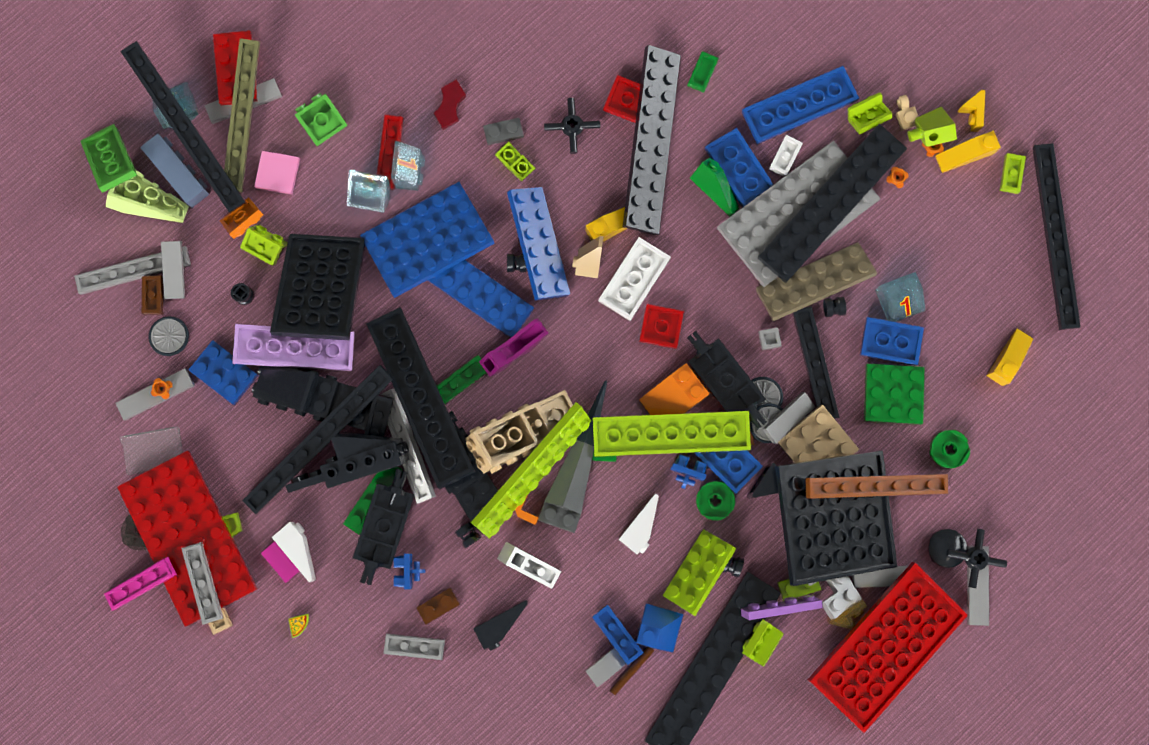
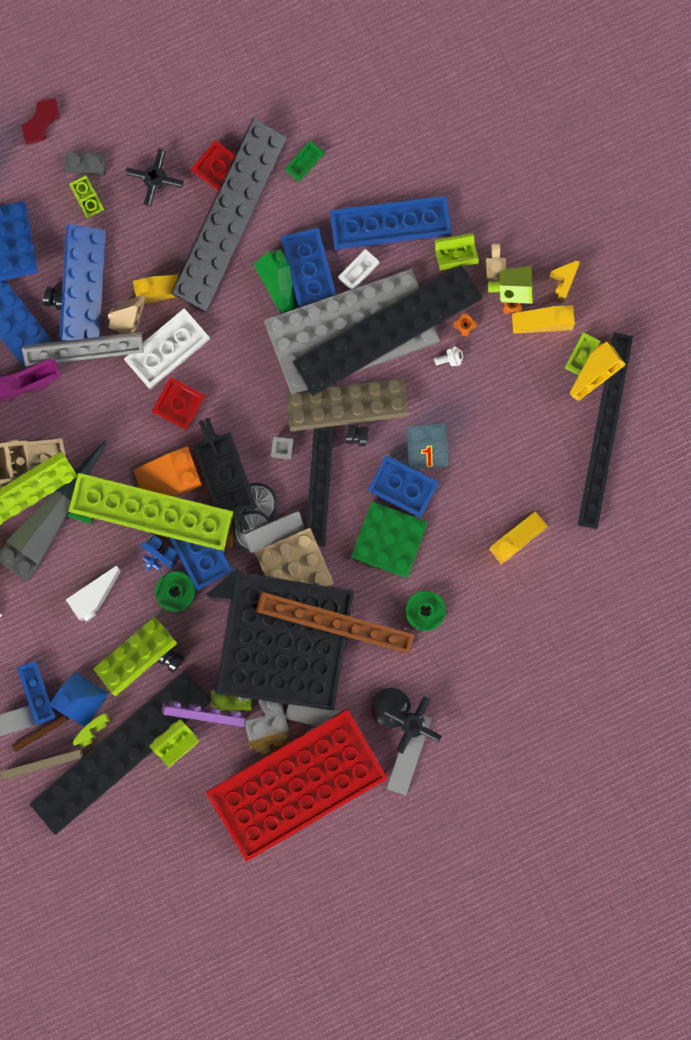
camera: 20 degrees right, 0 degrees up
(560, 301) = (84, 348): none -> light grey tile
(645, 700) = (43, 764): none -> dark tan tile
(676, 661) = (86, 734): none -> lime slope
(897, 209) = (453, 356): none -> white plate
(1035, 178) = (598, 368): none -> yellow slope

